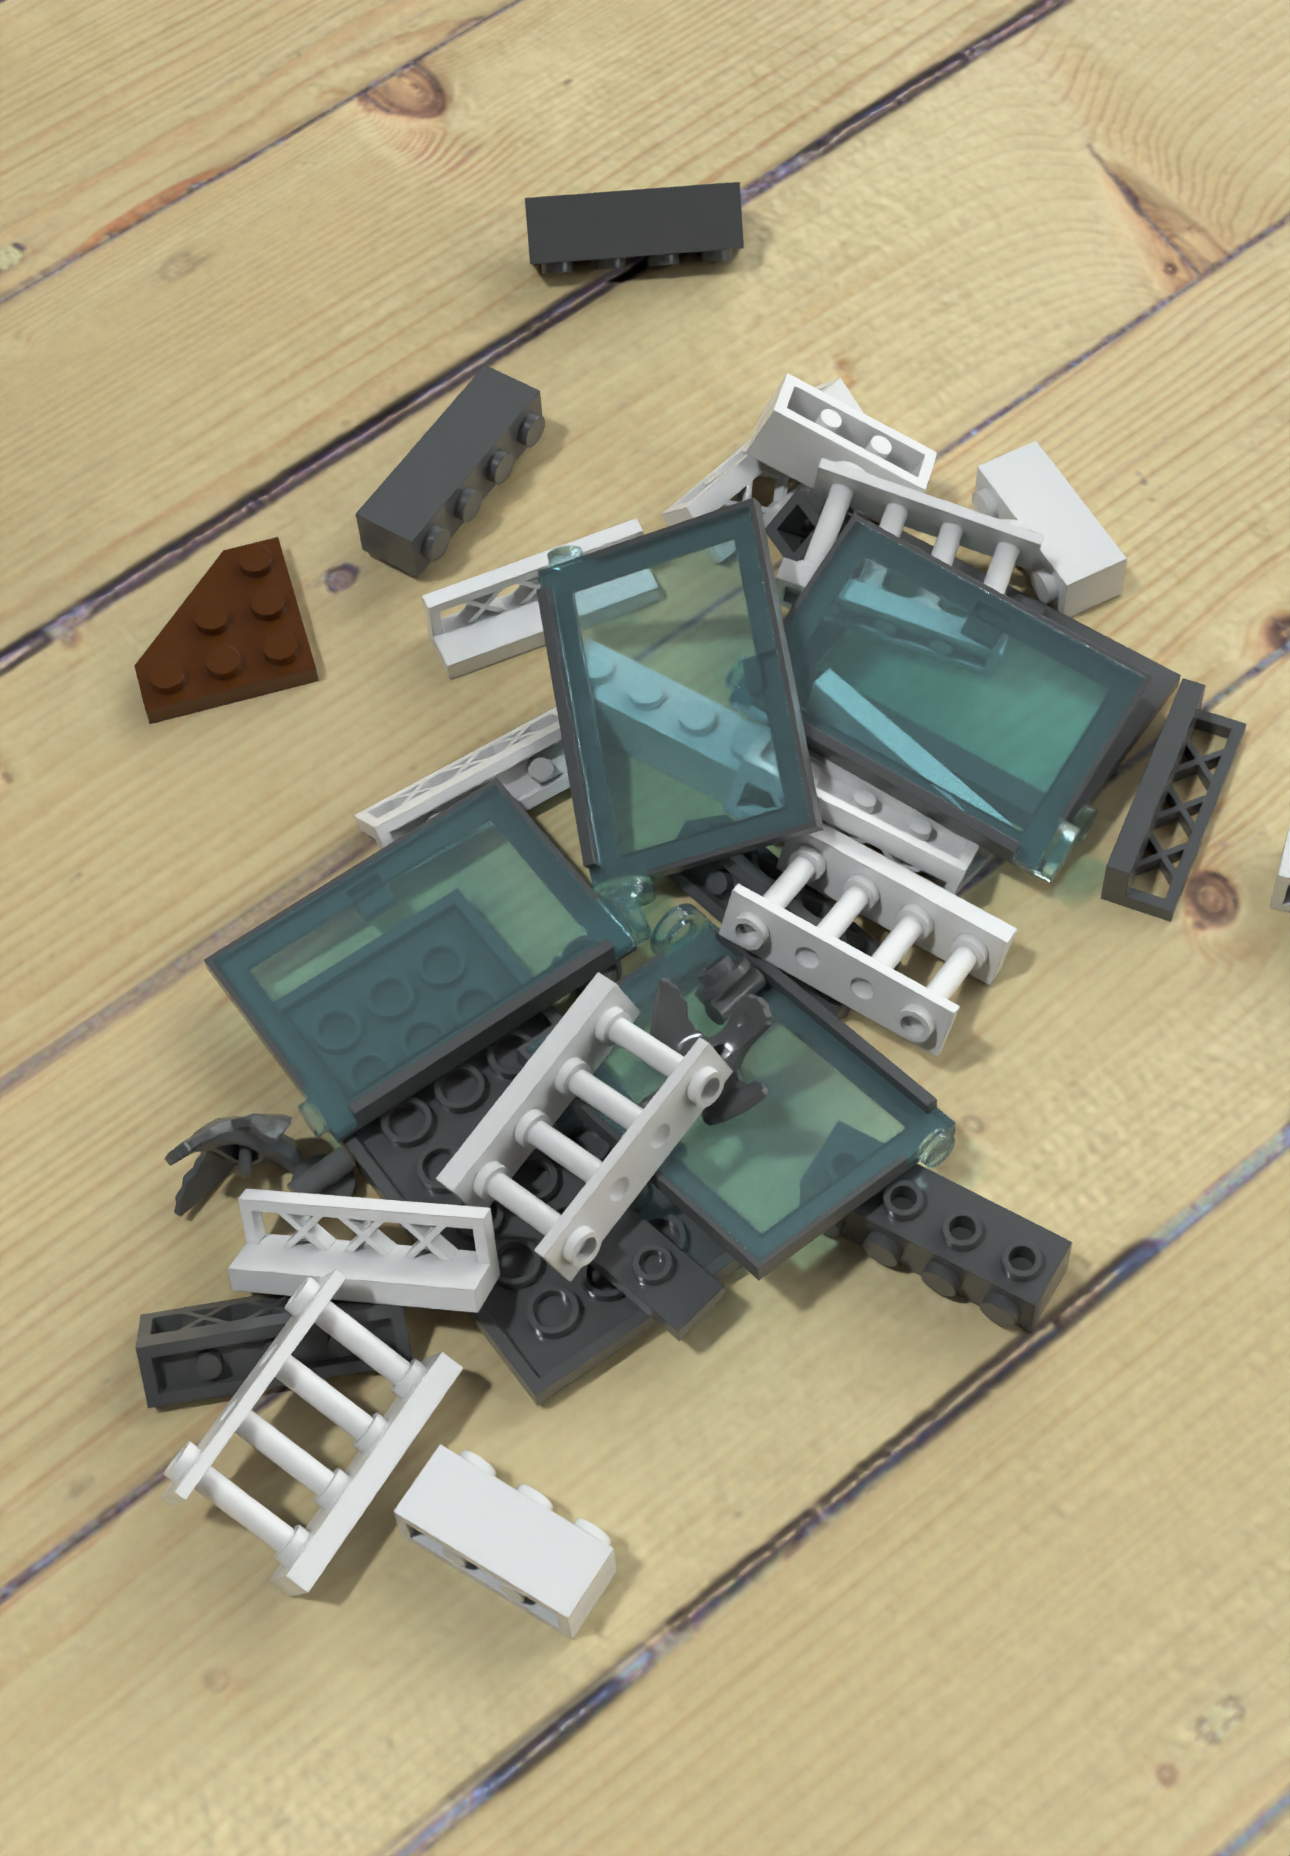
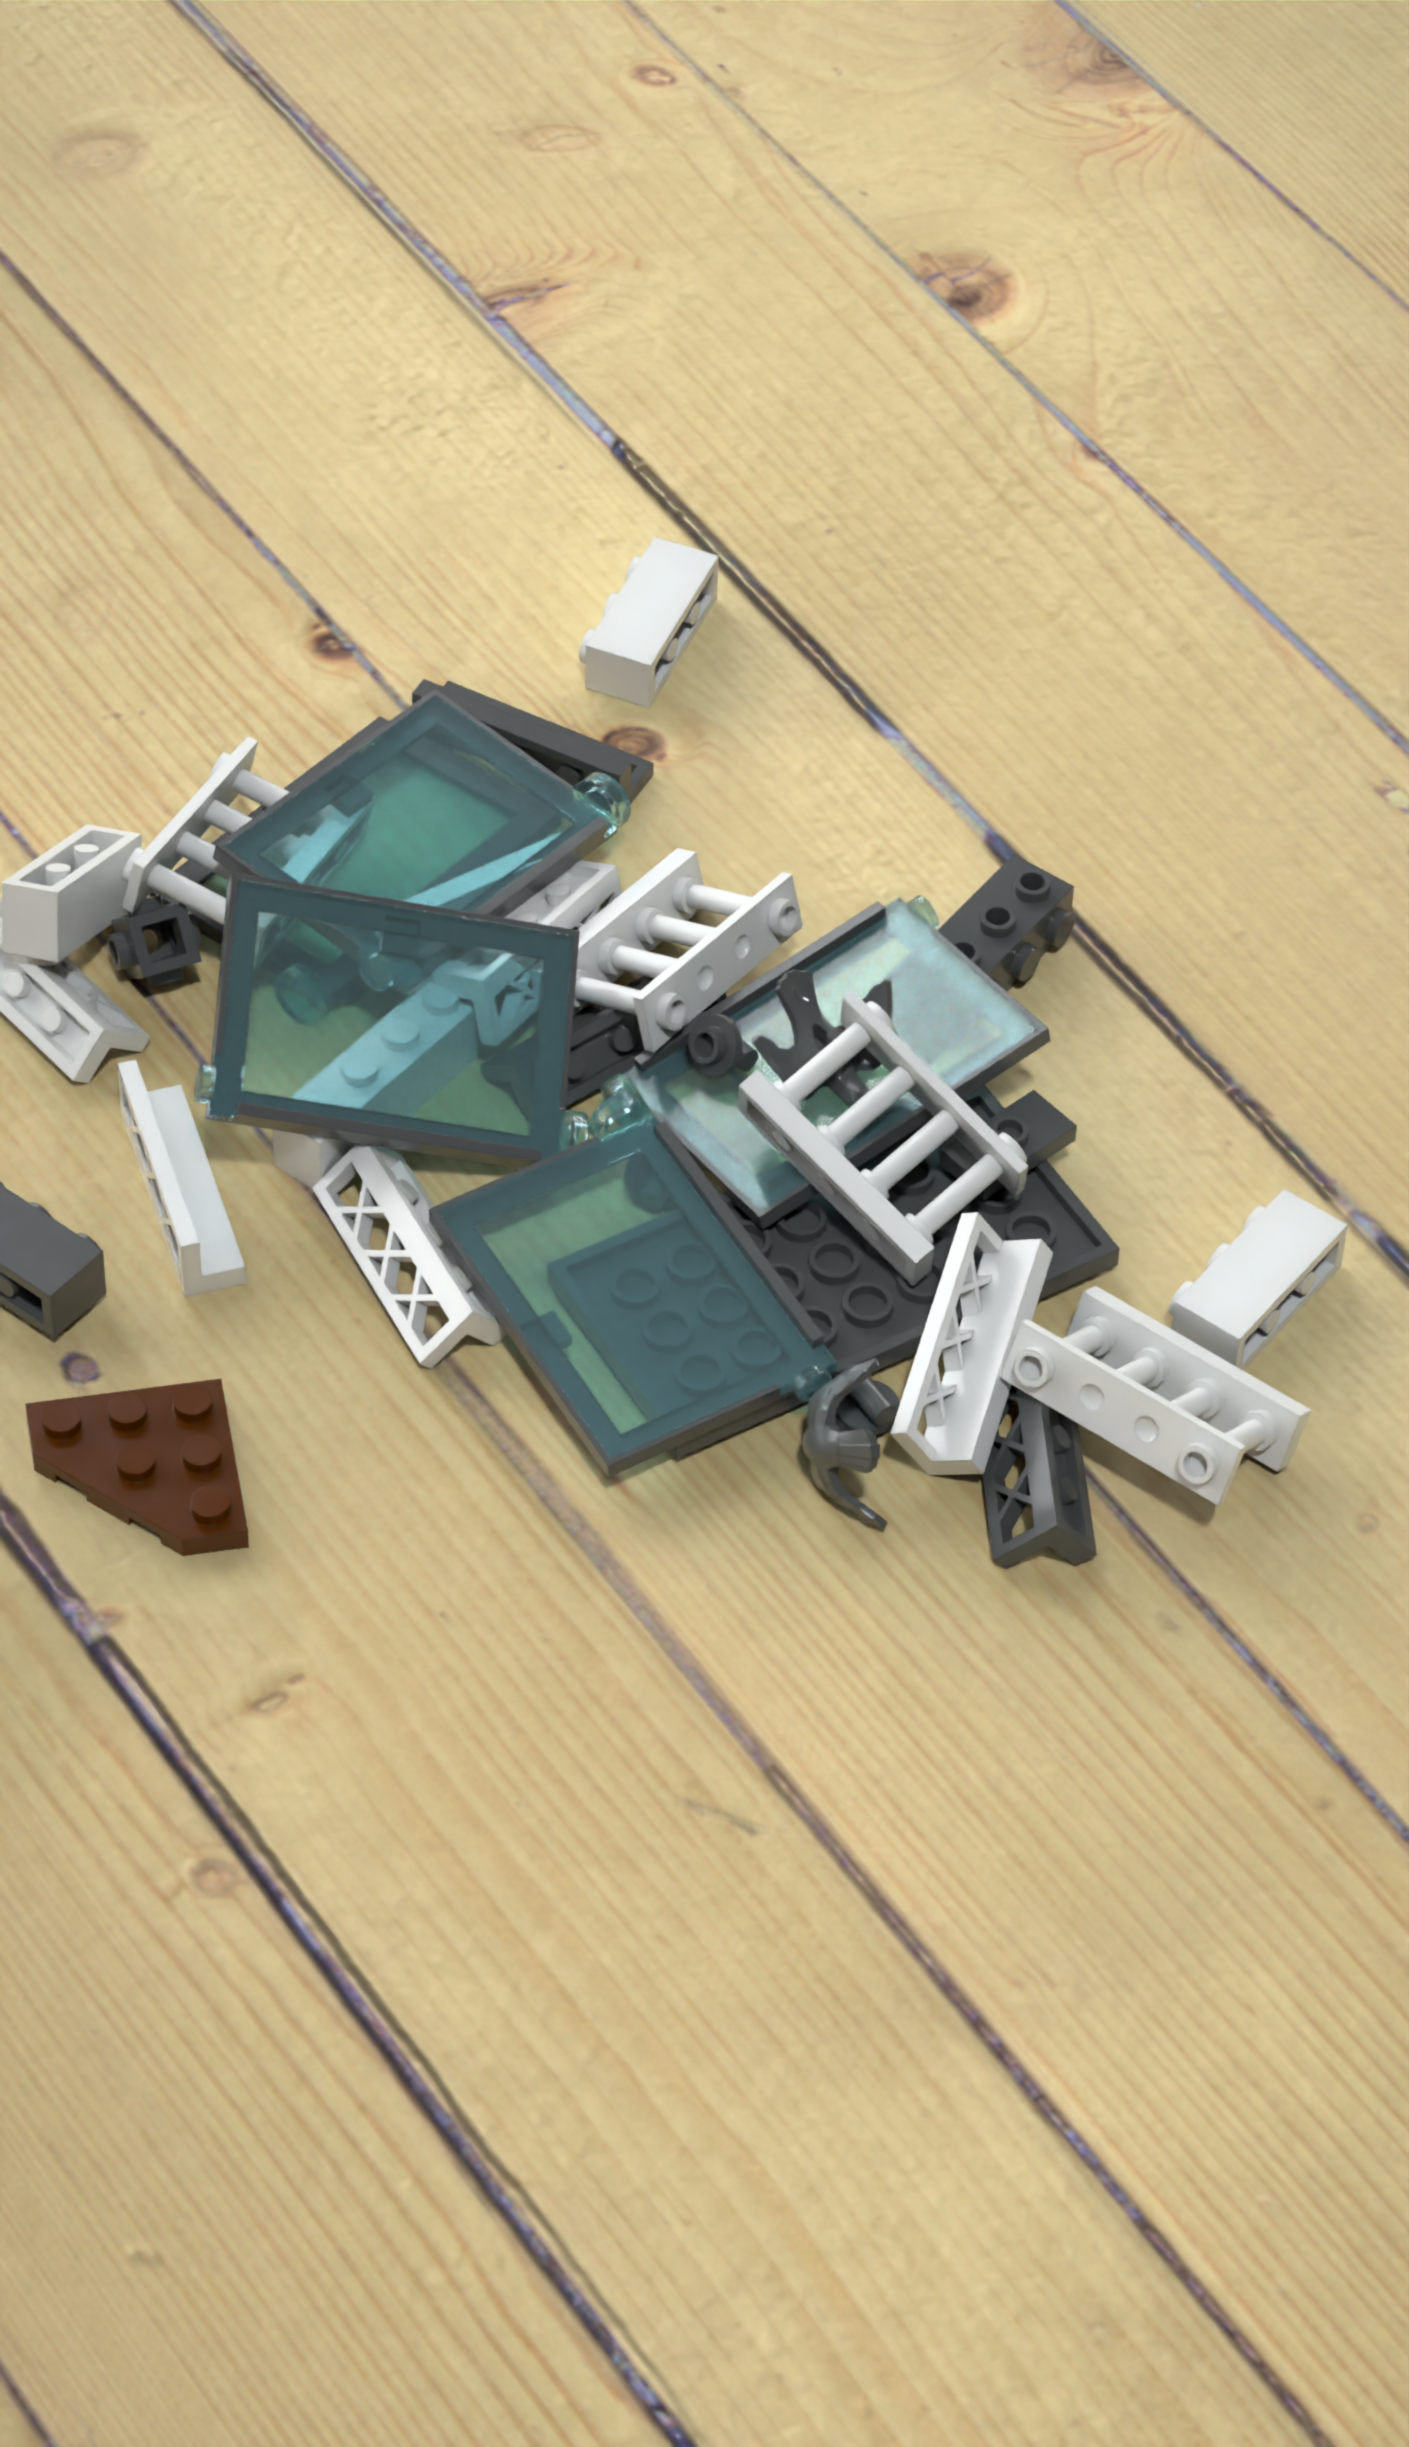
camera: 90 degrees left, 10 degrees down
(1077, 557) = (152, 778): white brick -> none

